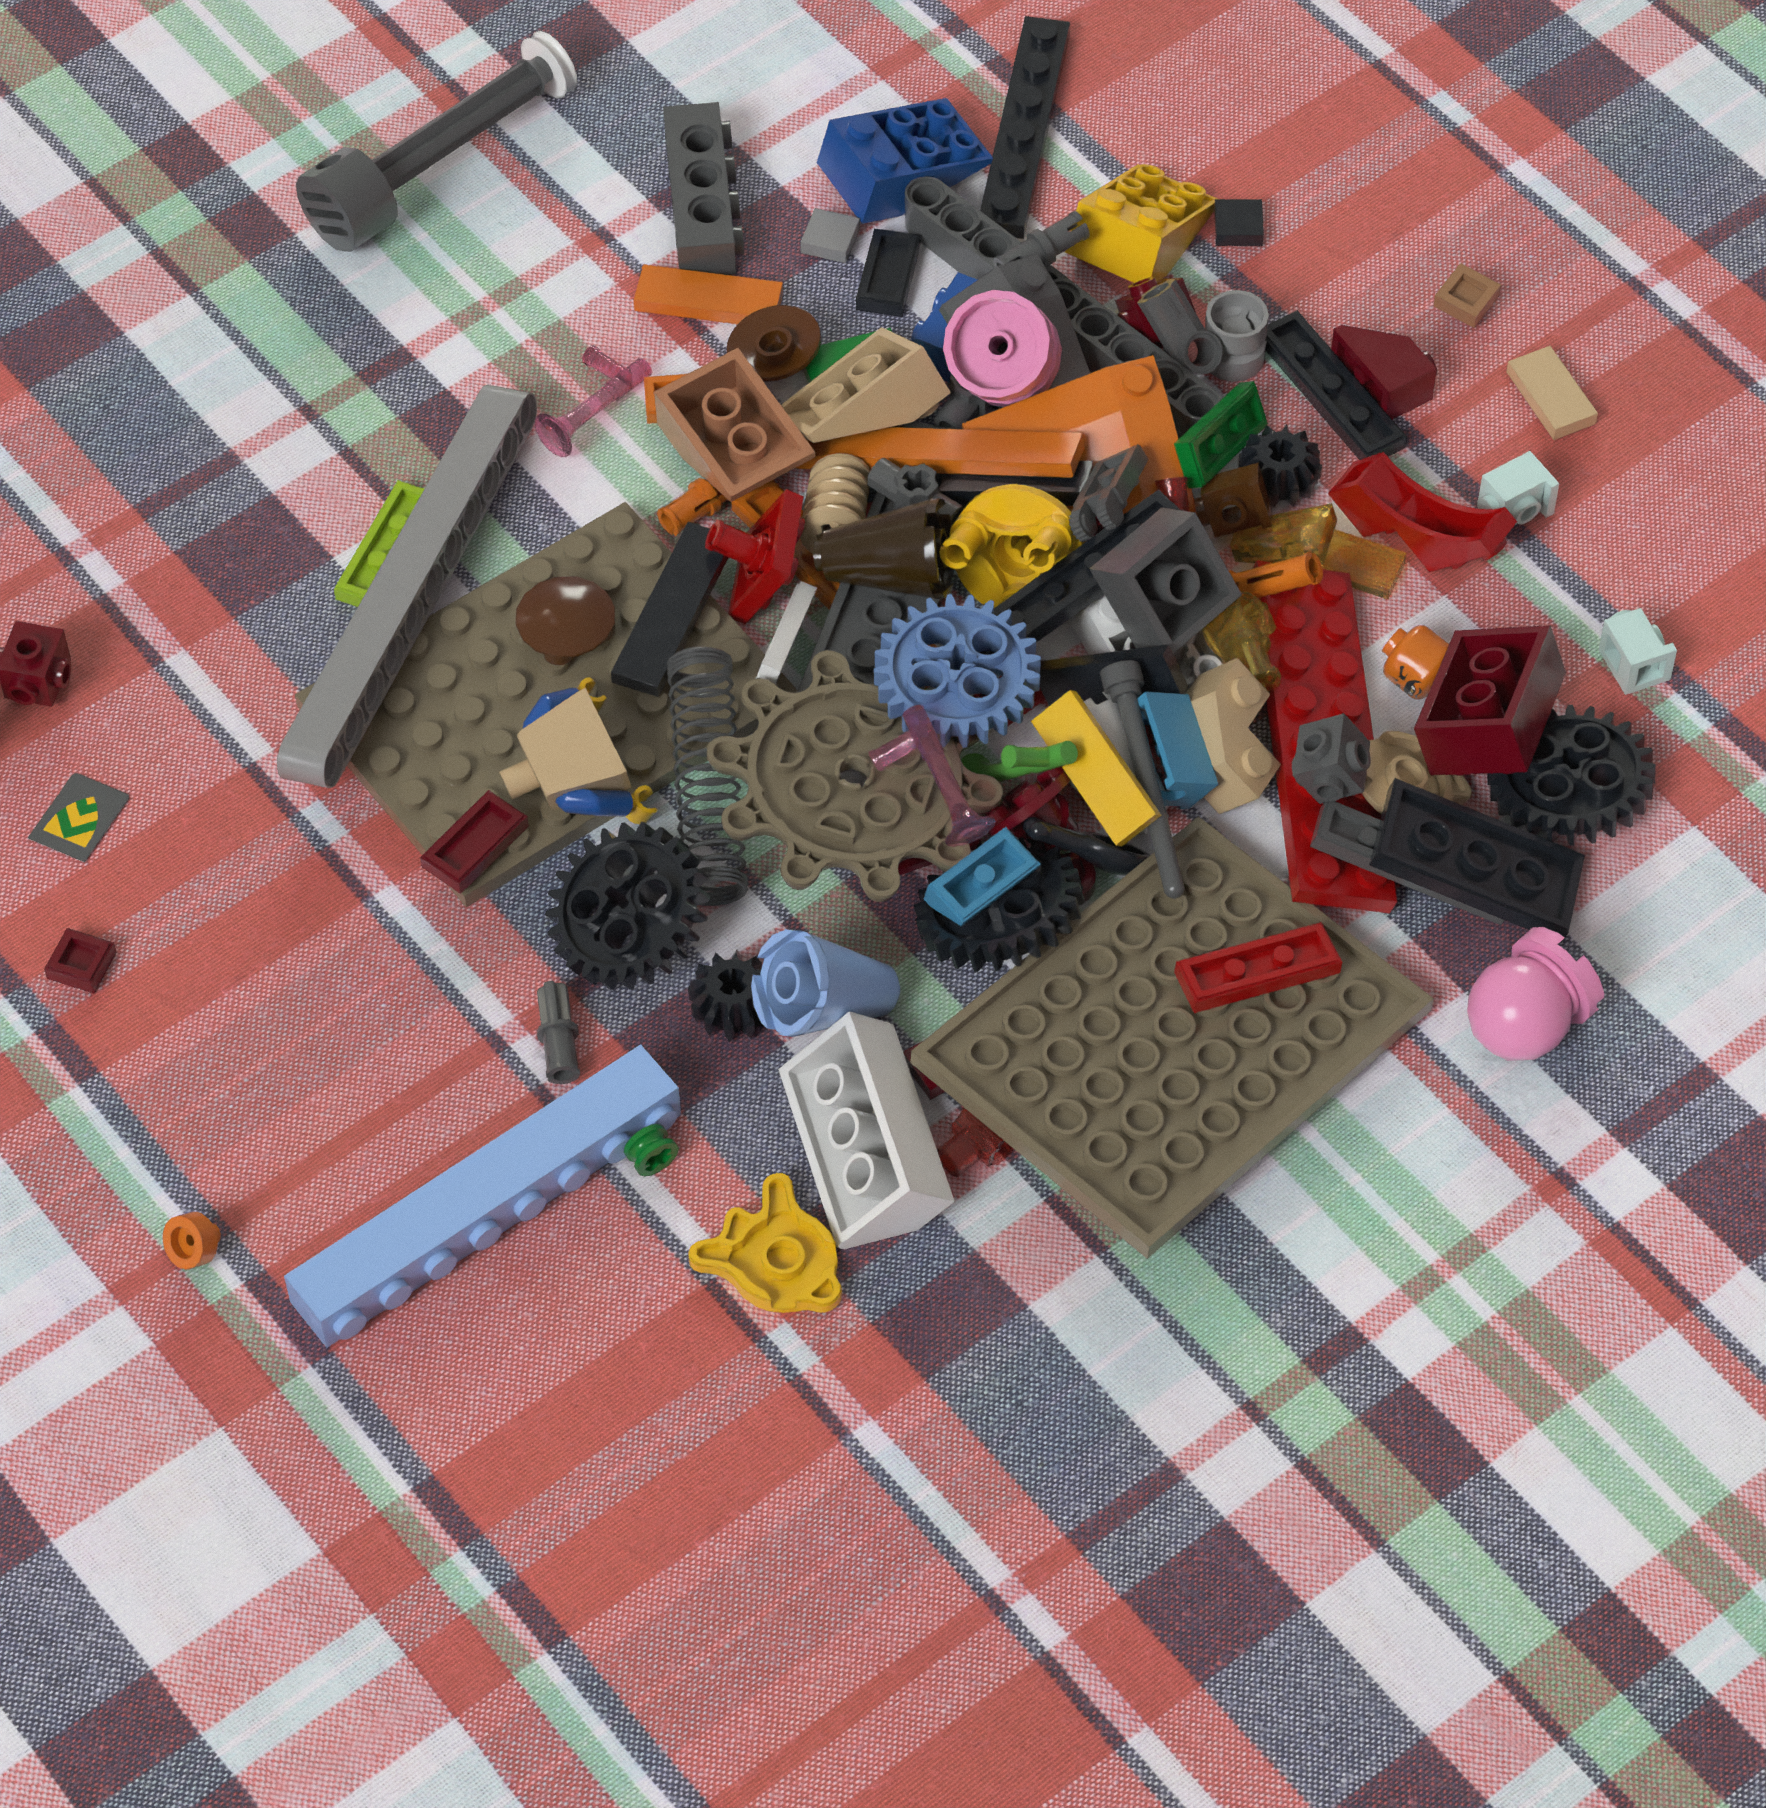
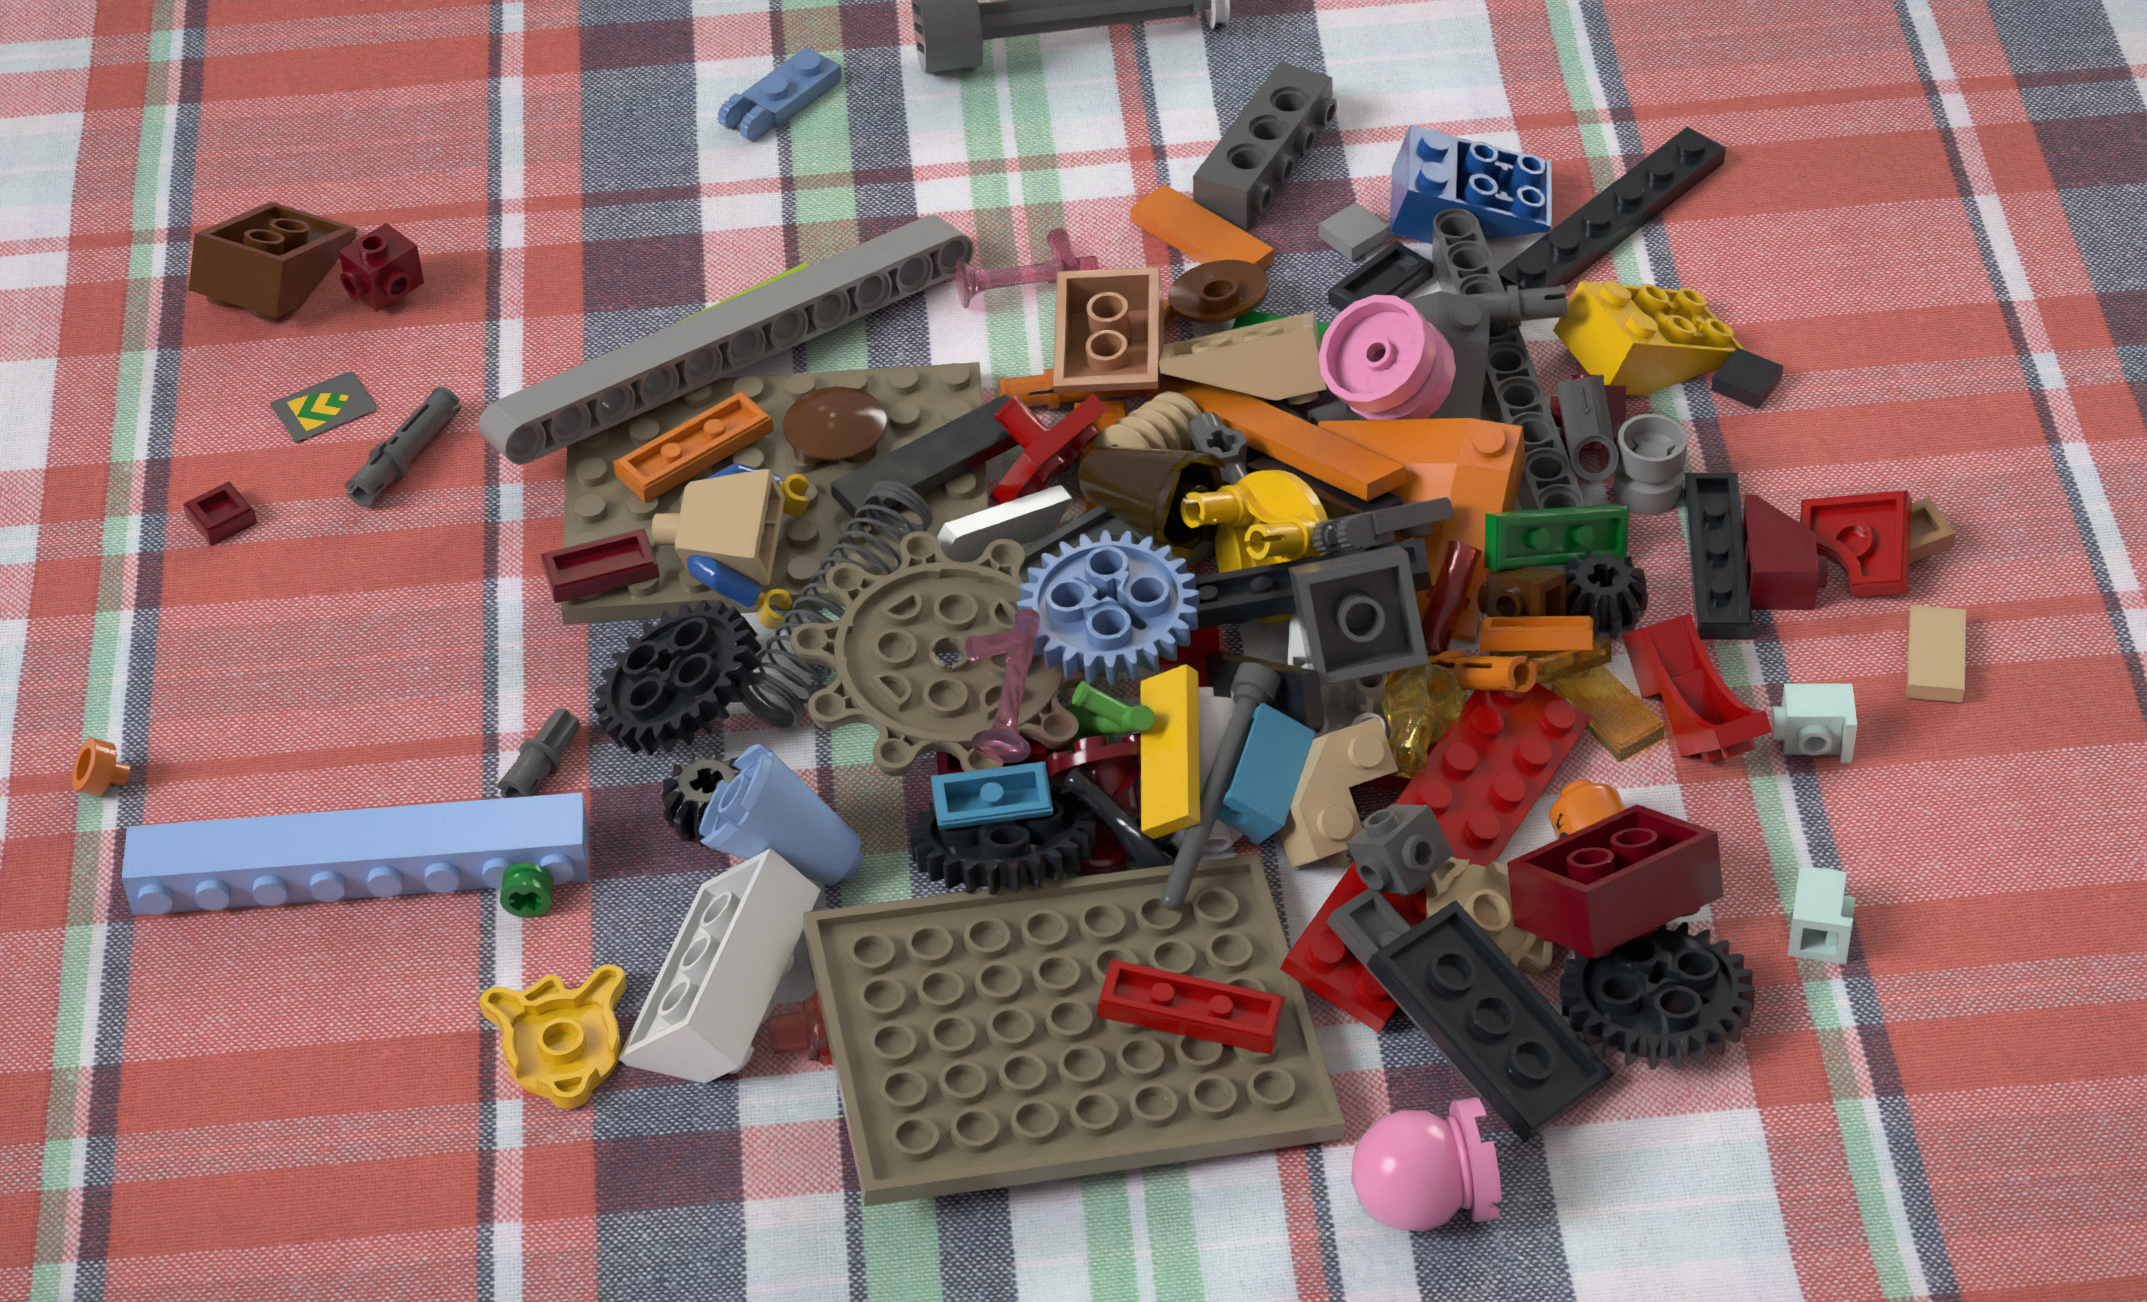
camera: 35 degrees right, 10 degrees down
(195, 836) = (391, 459): none -> dark grey pin
(236, 327) = (780, 94): none -> medium blue hinge
(460, 696) = (693, 446): none -> orange tile
(1278, 526) = (1536, 633): none -> orange tile
(1438, 321) = (1864, 537): none -> red tile

